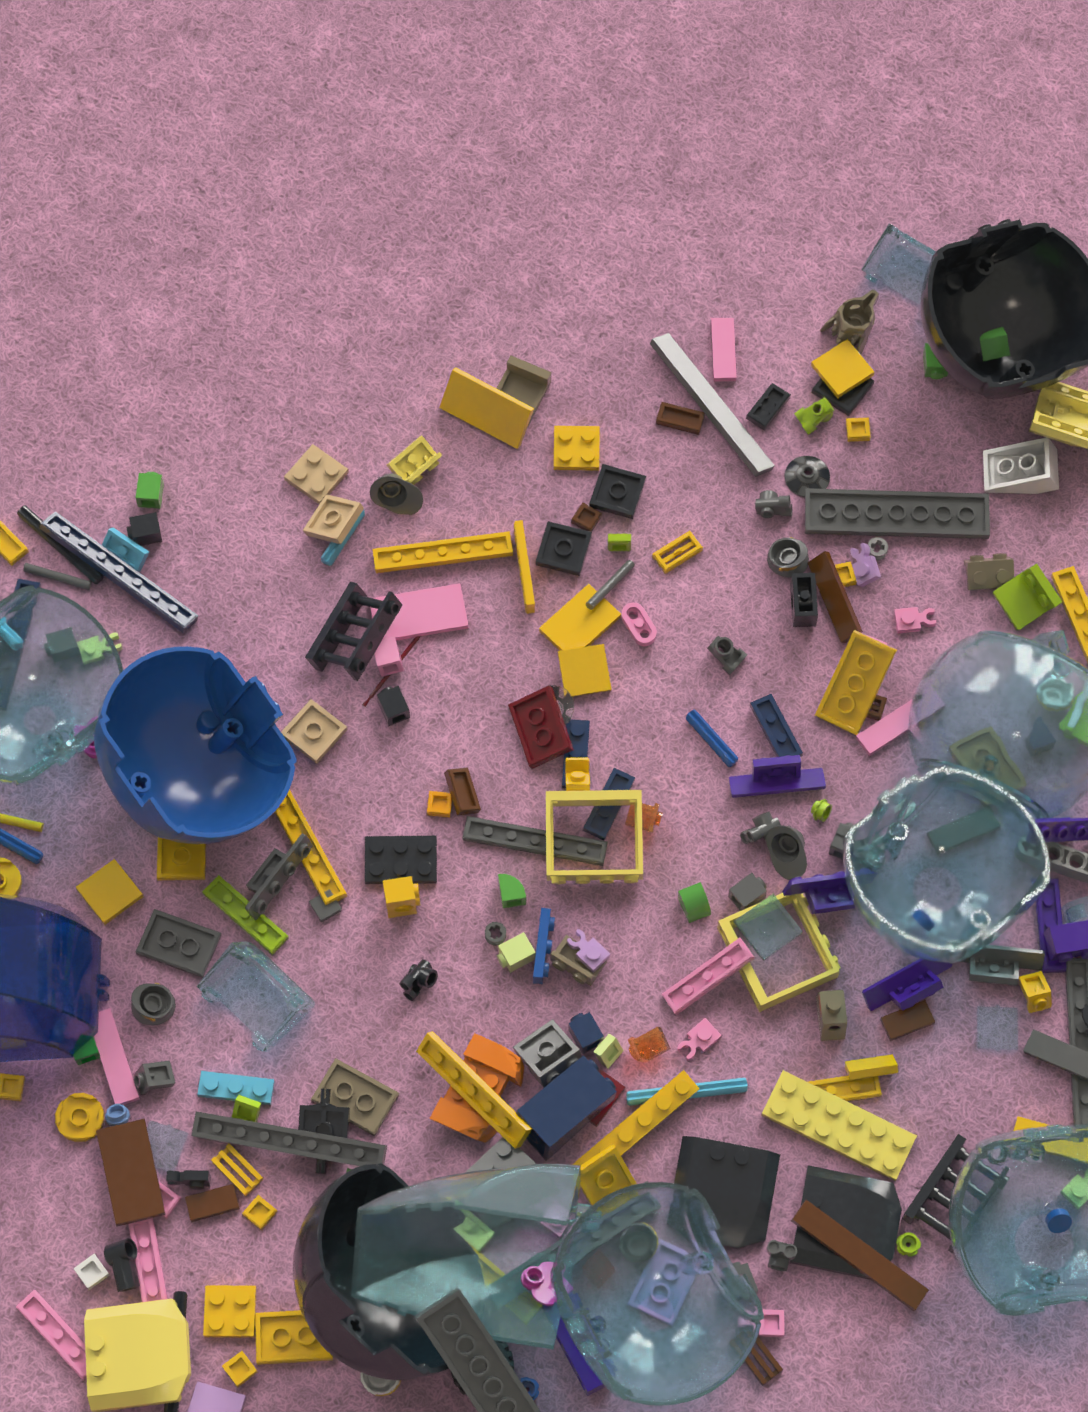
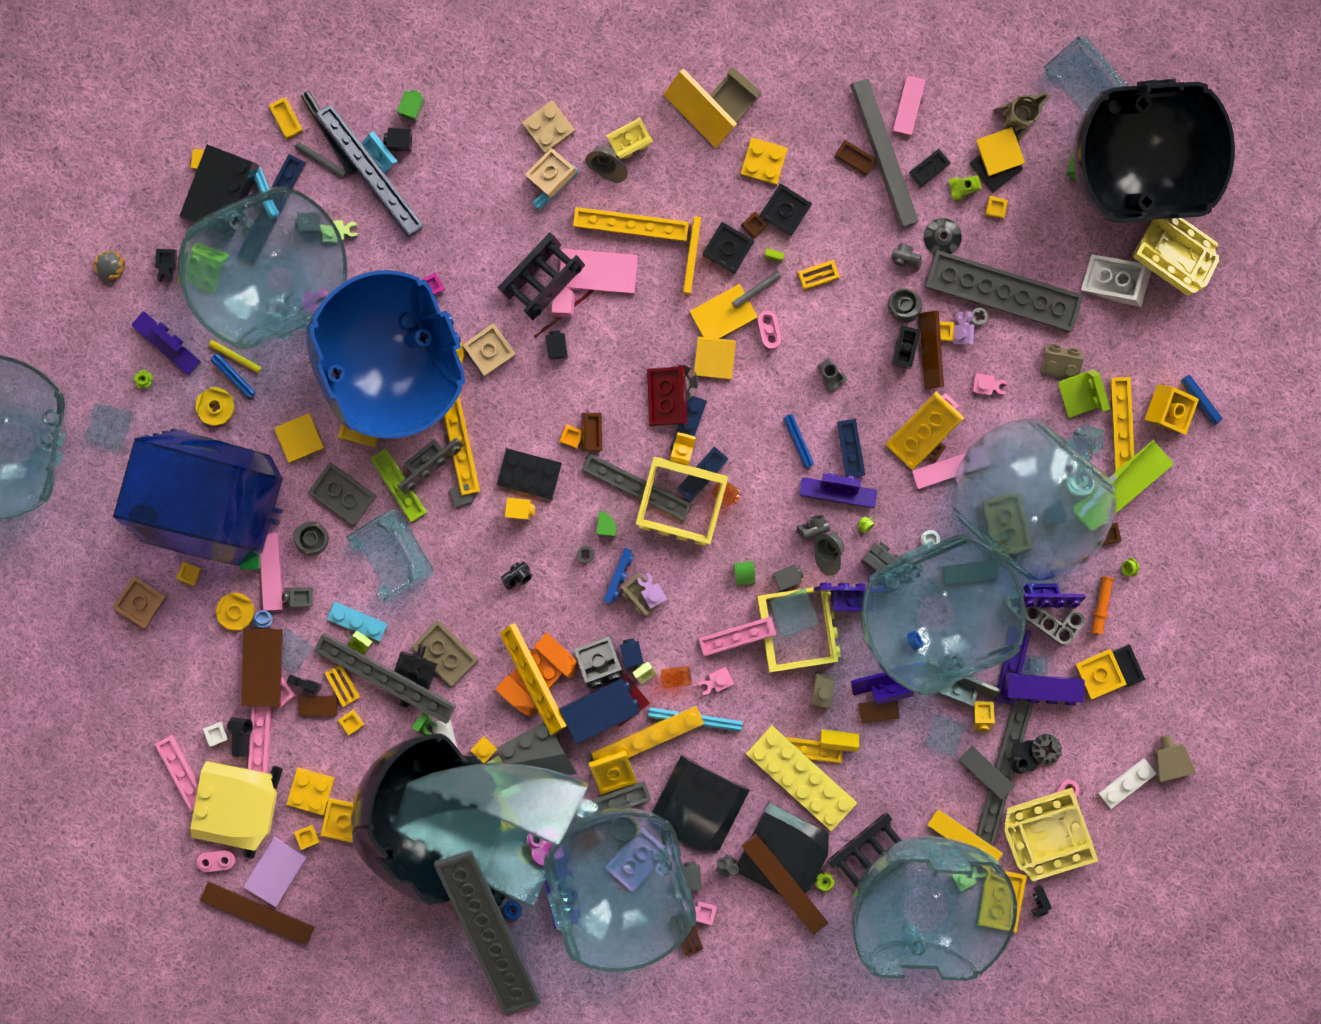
camera: 20 degrees right, 20 degrees up
(516, 952) = (596, 575): yellowish green brick -> none
(994, 344) = (1130, 167): bright green brick -> none
(1058, 1220) = (941, 899): blue tile -> none

